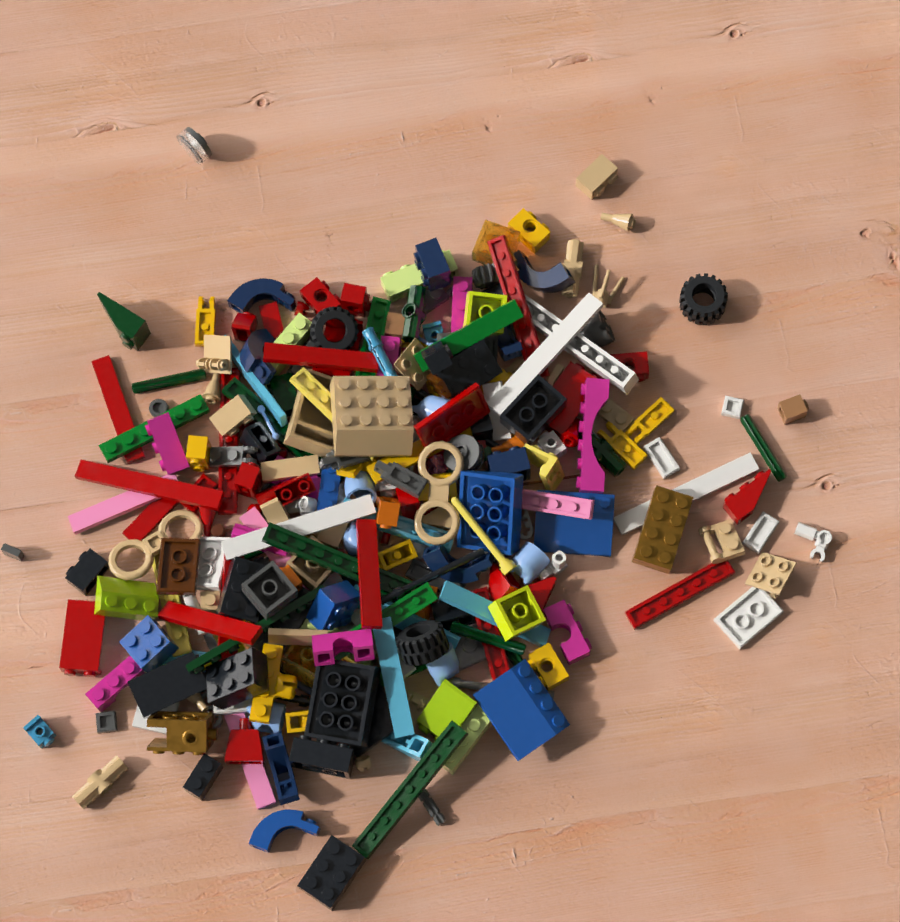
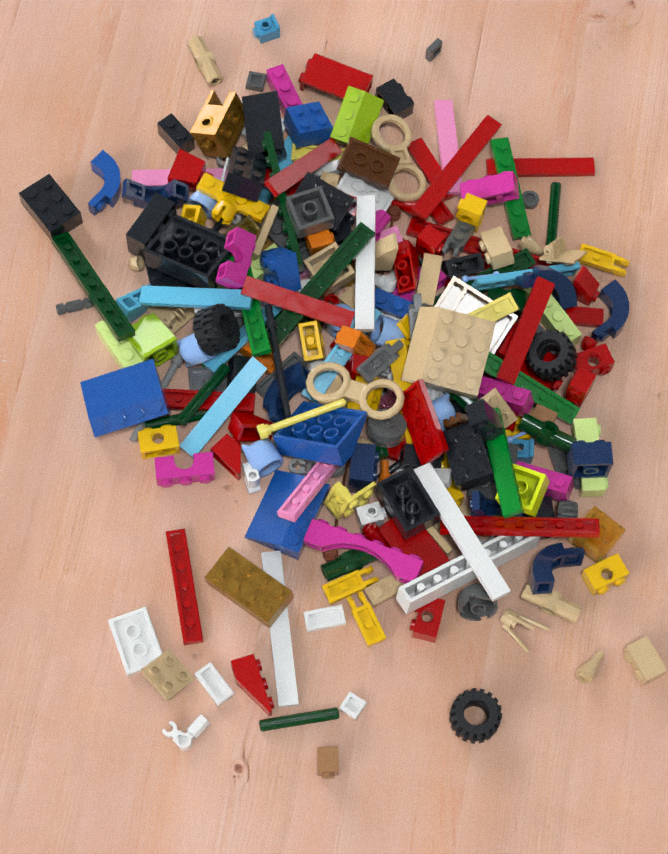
camera: 100 degrees right, 5 degrees down
(130, 327) = (621, 187): dark green slope -> none
(377, 349) = (511, 381): dark azure pin -> none
(516, 613) = (213, 419): neon yellow brick -> none
(727, 538) = (217, 647): tan plate -> none

